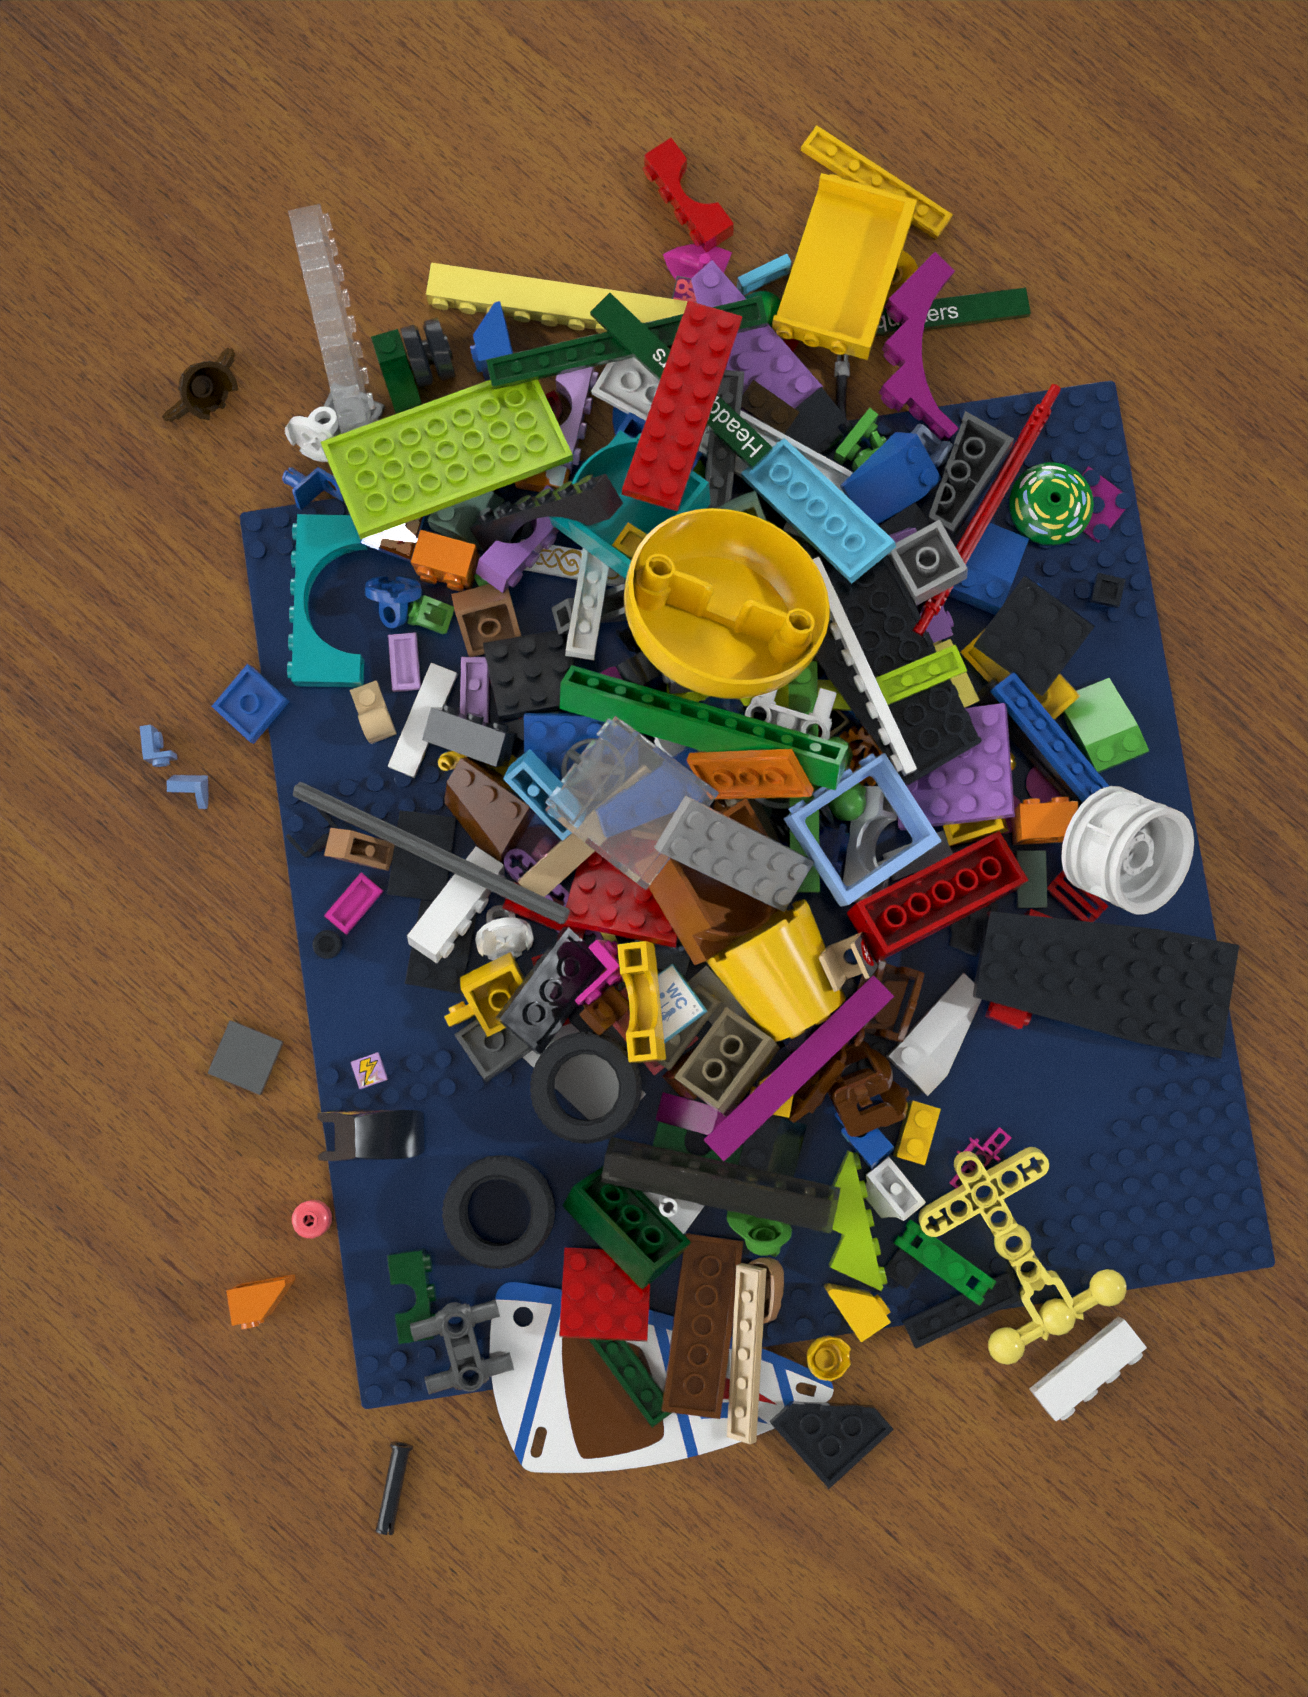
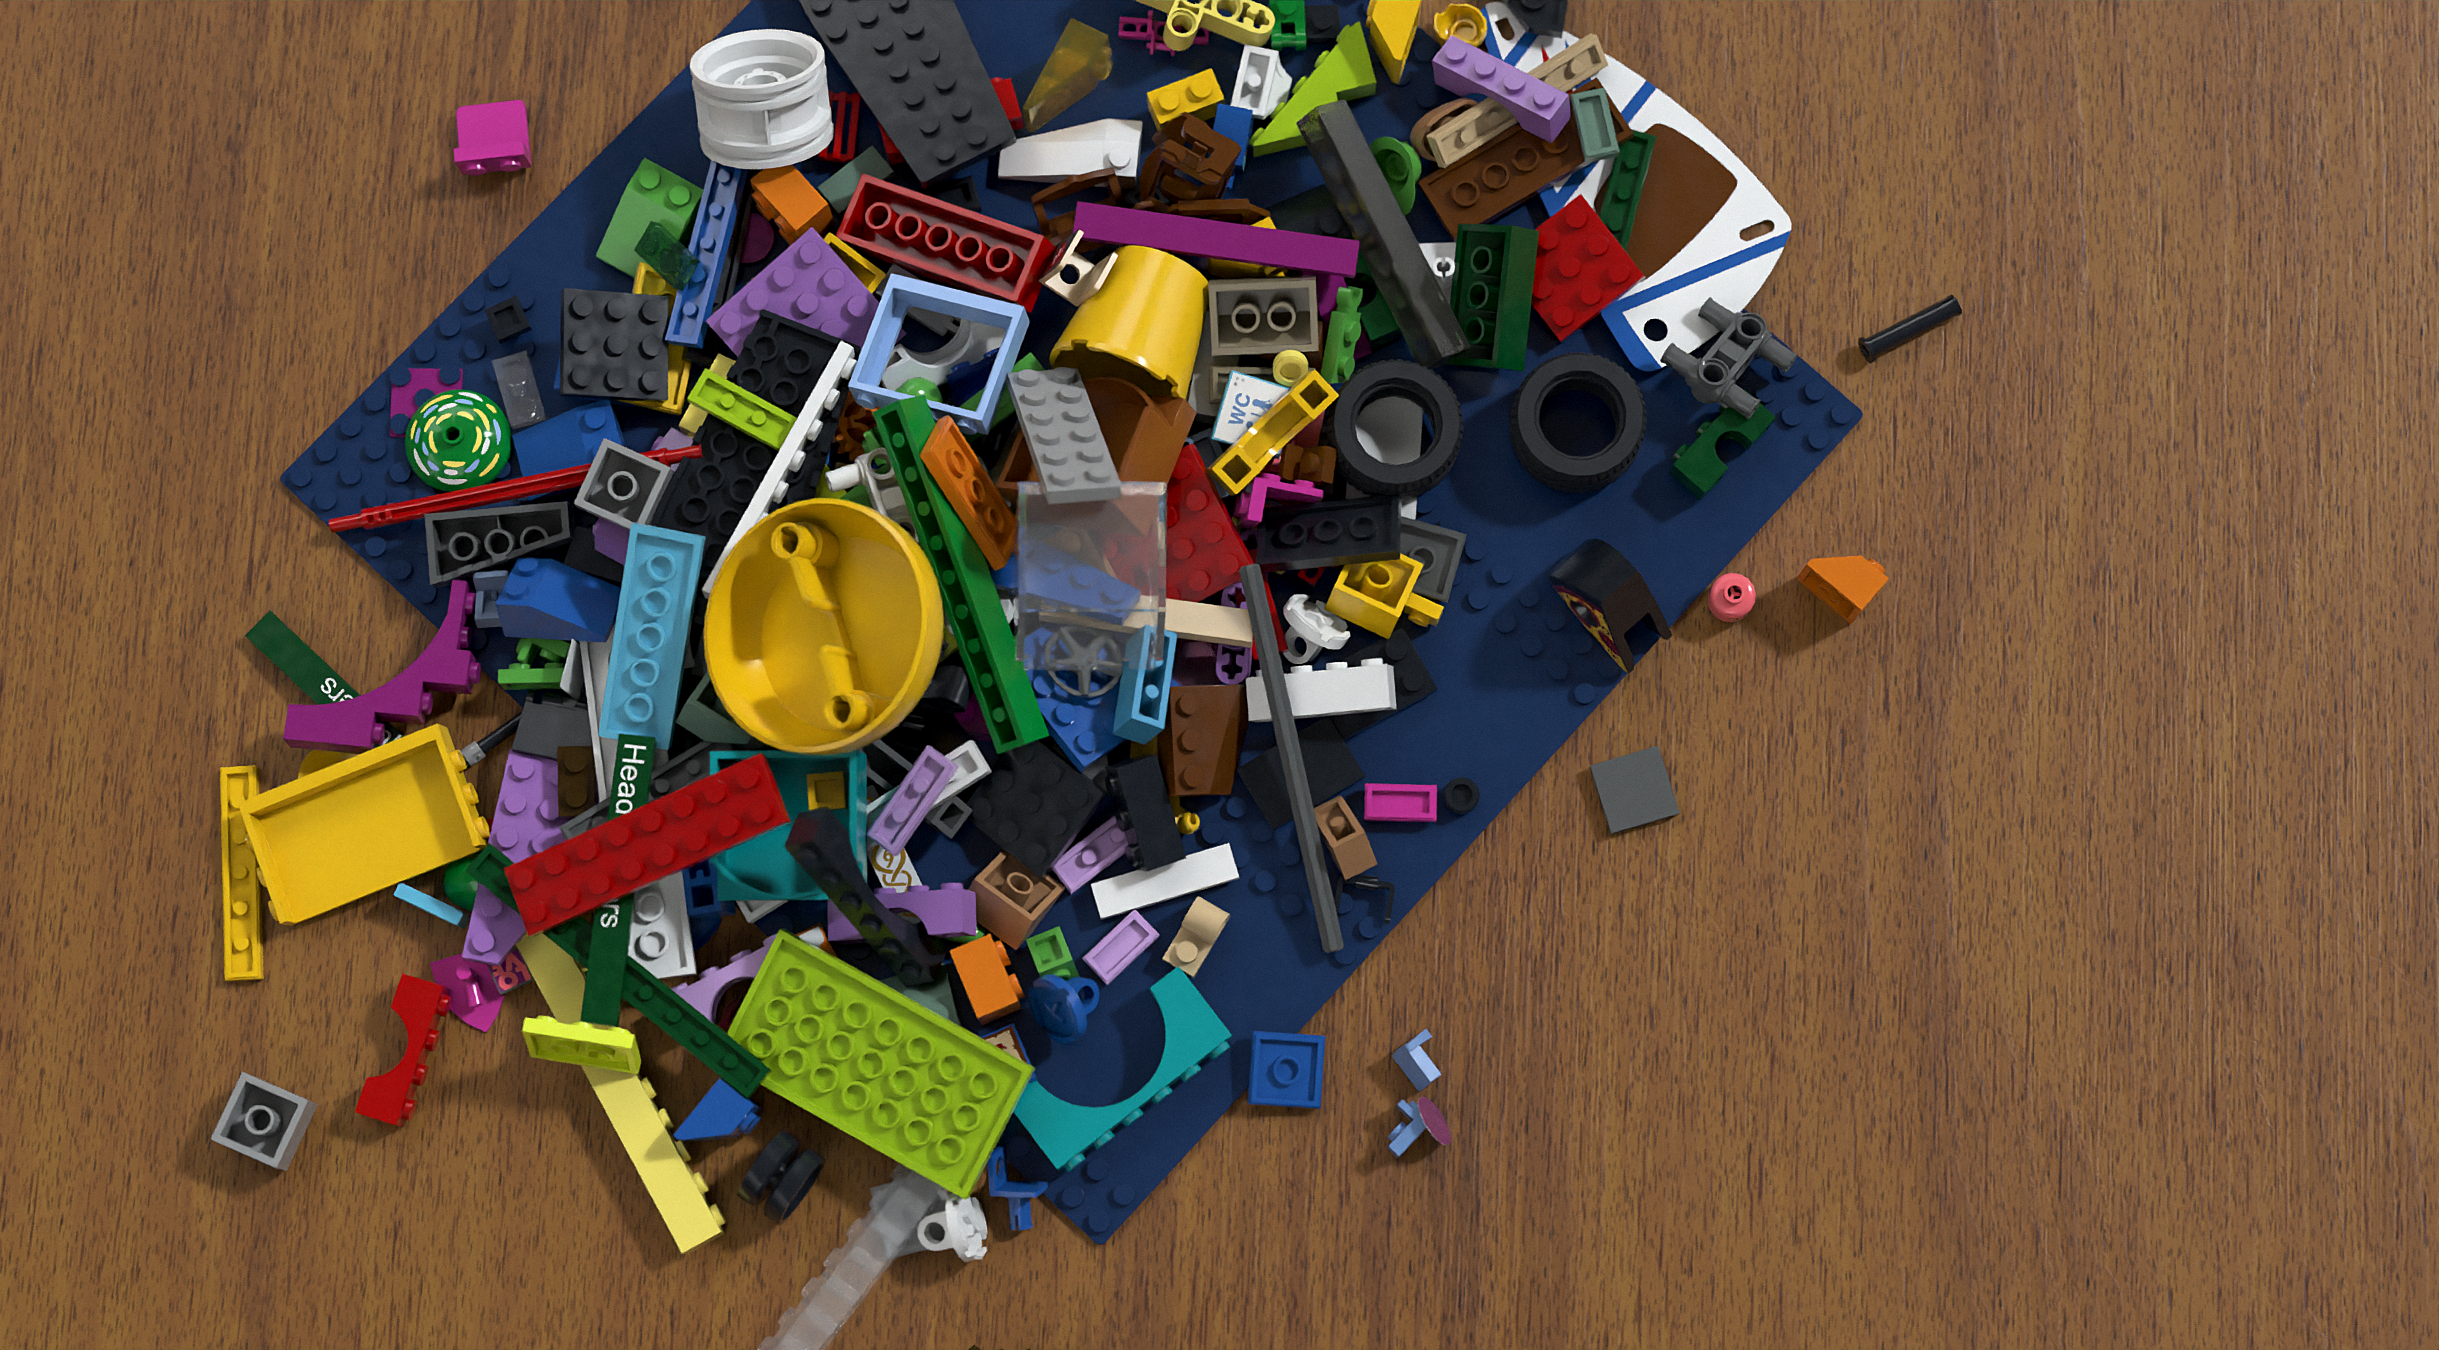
camera: 130 degrees left, 5 degrees down
(145, 766) = (1434, 1121): none -> flat silver sticker
(369, 1070) = (1548, 656): tile -> none
(396, 370) = (831, 1189): dark green arch -> none
(586, 593) = (912, 800): none -> lavender tile
(599, 288) = (582, 1044): none -> neon yellow plate
(675, 1104) = (1342, 336): none -> bright green plate
(678, 1051) = (1289, 367): none -> light yellow tile
(687, 1389) = (1594, 125): none -> sand green tile
(708, 83) = (264, 1121): none -> light grey brick
(740, 1356) = (1534, 103): none -> medium lavender arch
(837, 454) = (573, 672): none -> white sticker
(995, 1072) = (1070, 73): none -> clear yellow slope
(1054, 563) = (519, 390): none -> clear plate
(1069, 714) = (667, 255): none -> clear green plate
(1241, 673) = (492, 138): none -> dark pink bracket

